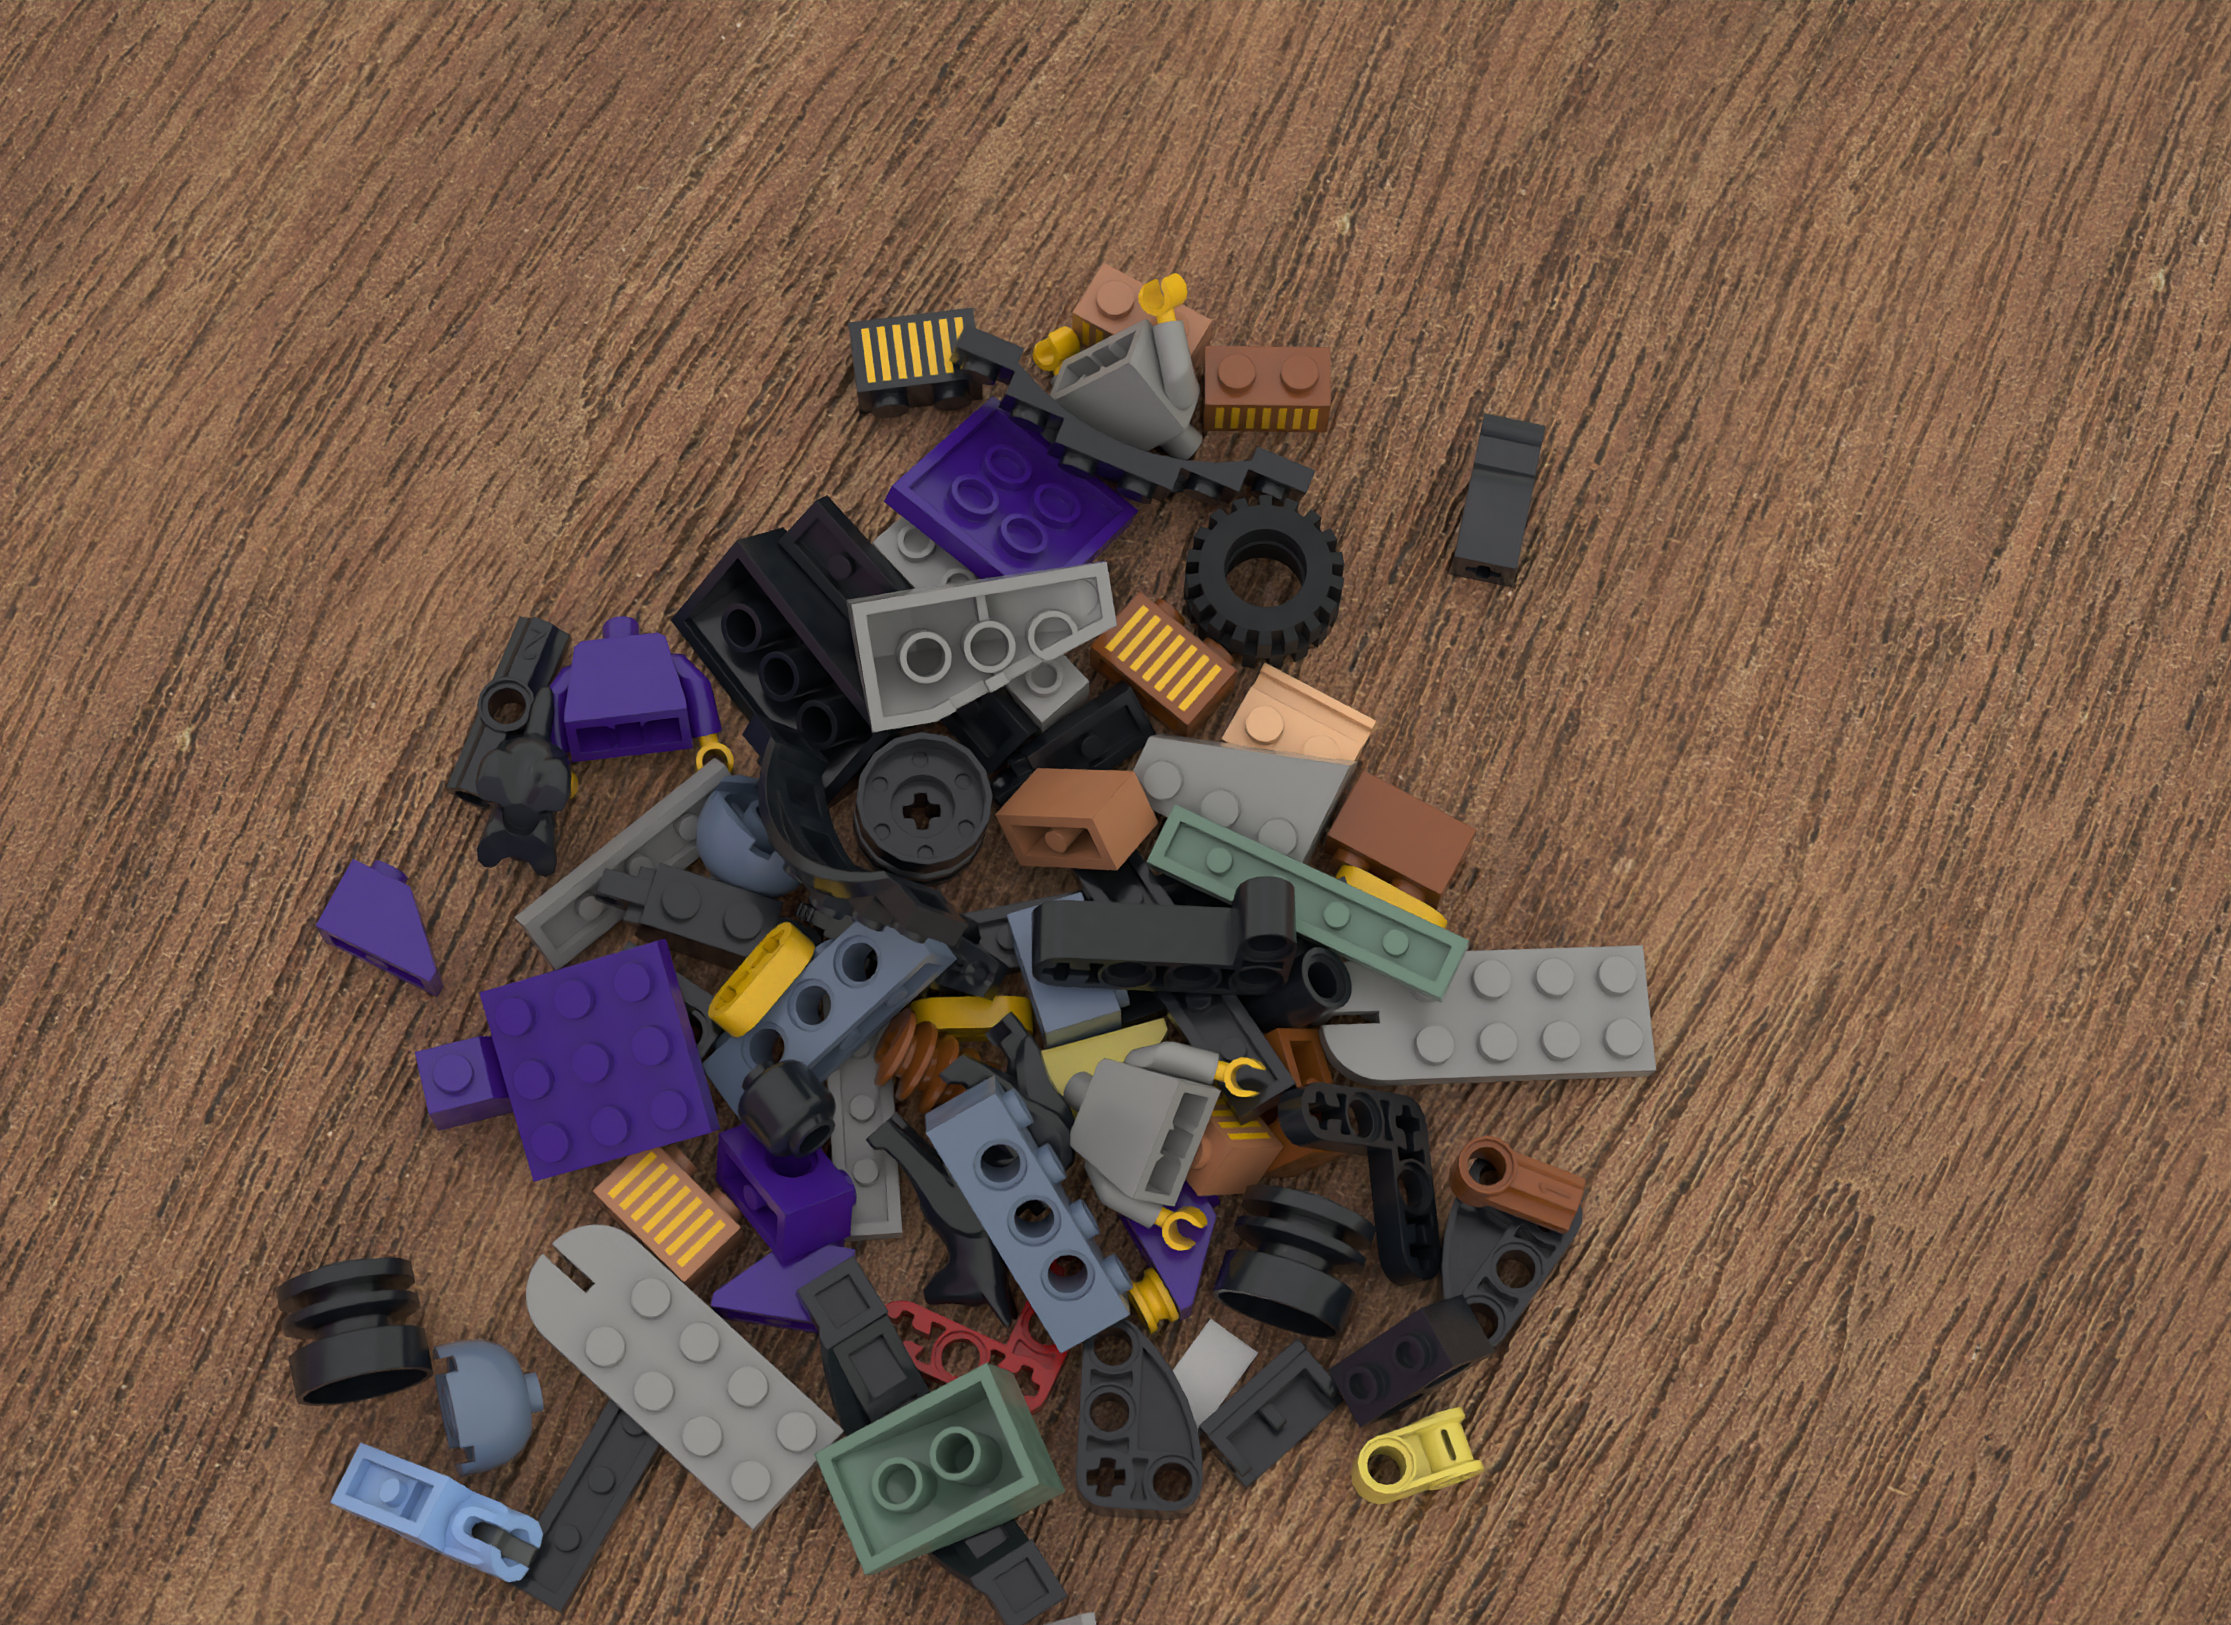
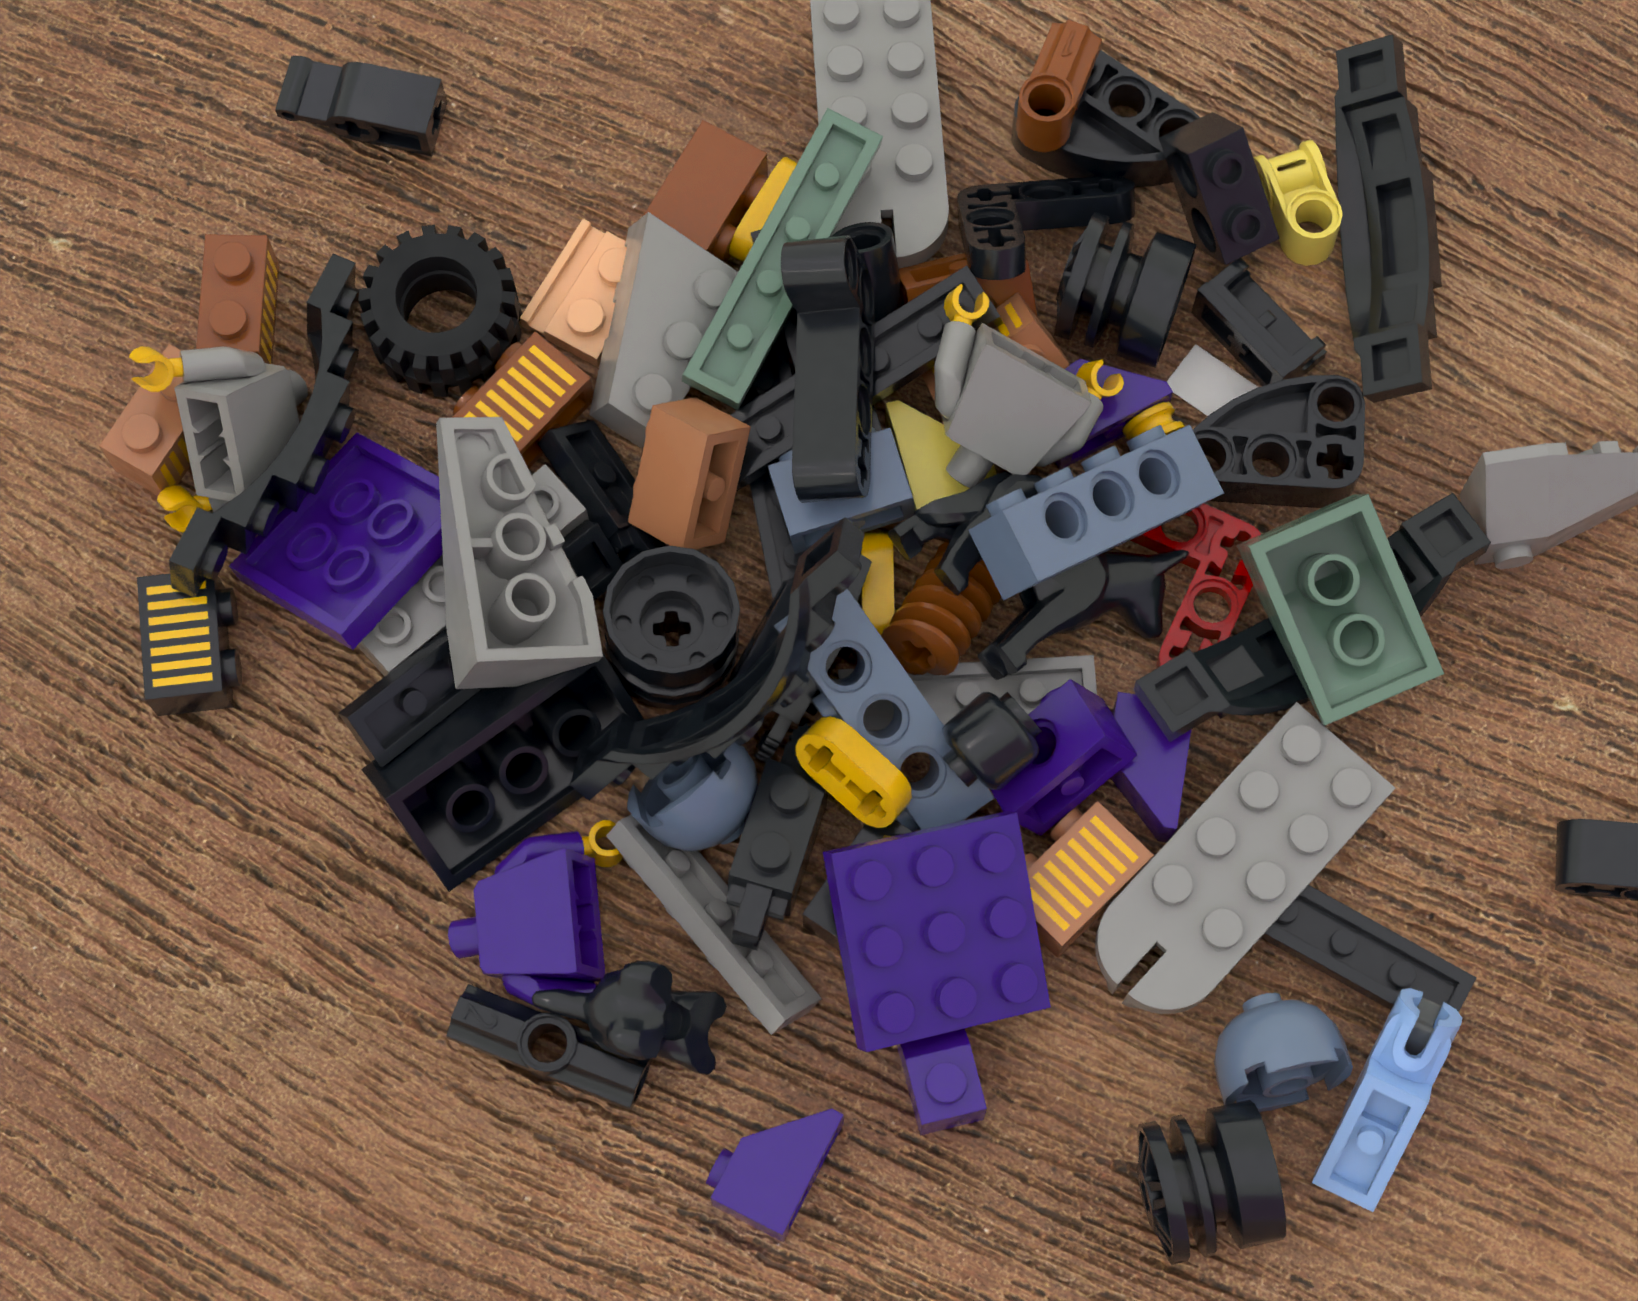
camera: 85 degrees left, 0 degrees up
(1381, 1552) = (1385, 221): none -> black piece

